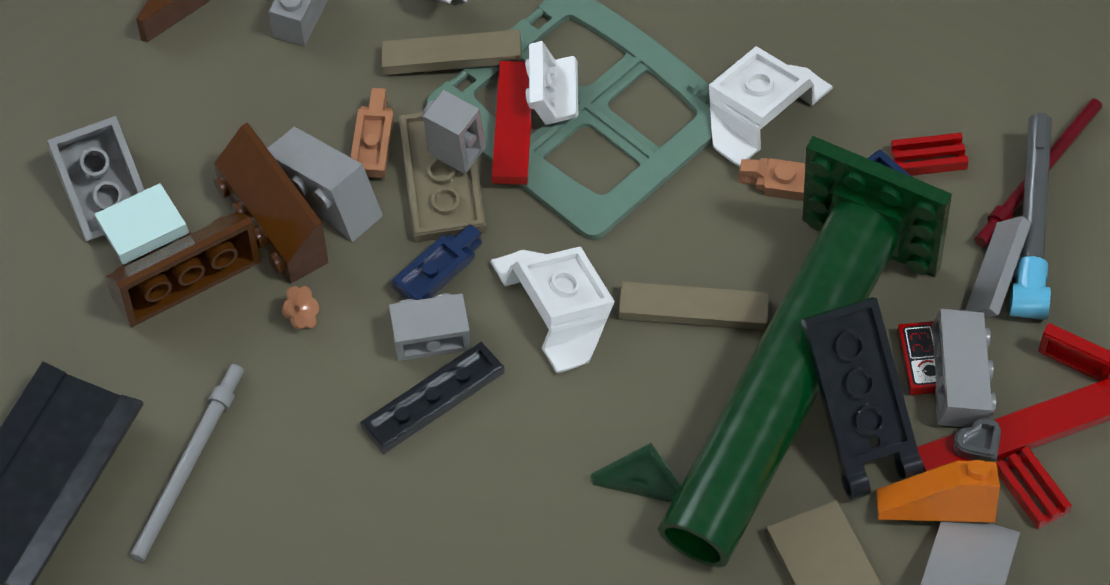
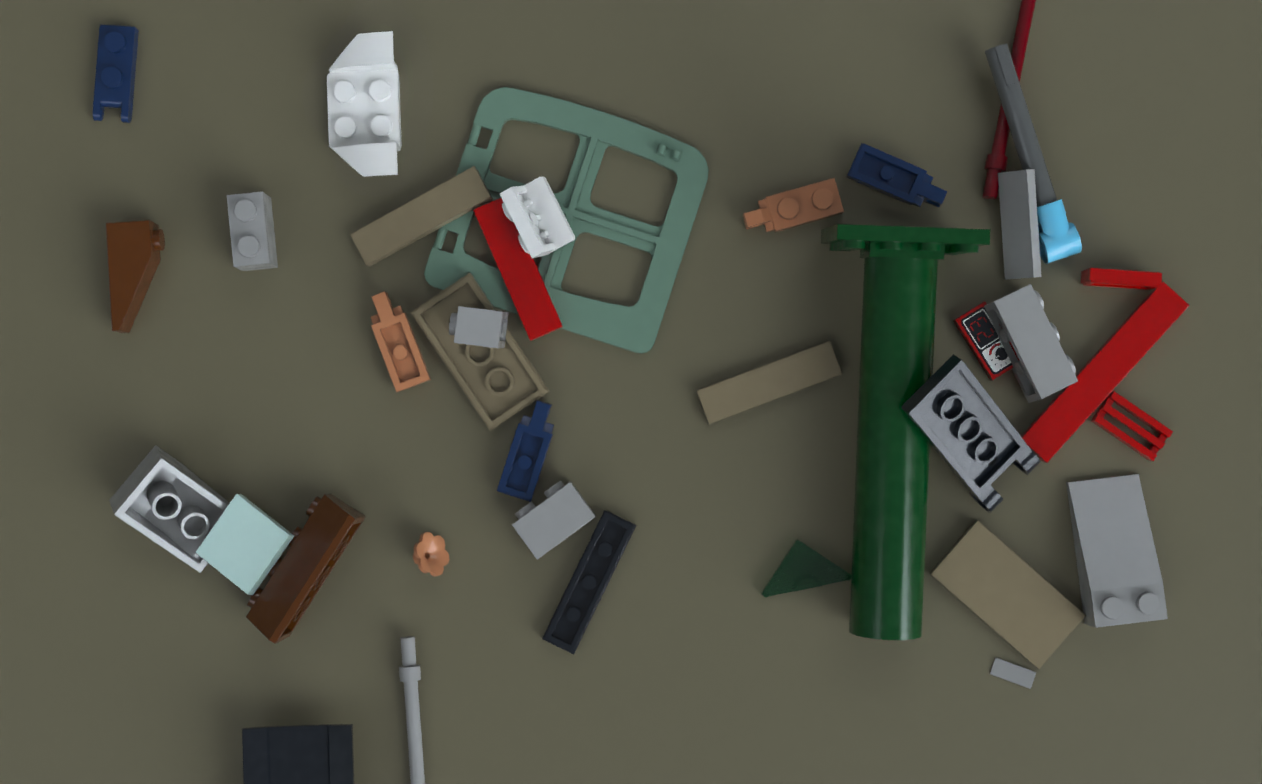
camera: 30 degrees left, 30 degrees up
(279, 212) = (349, 470): reddish brown slope -> none
(329, 182) = (379, 419): light grey wedge -> none
(567, 298) = (651, 431): white piece -> none
(752, 96) = (729, 138): white piece -> none
(927, 149) = (929, 104): red tile -> none
(948, 493) = (1064, 478): orange slope -> none
(978, 441) = (1075, 410): dark grey tile -> none

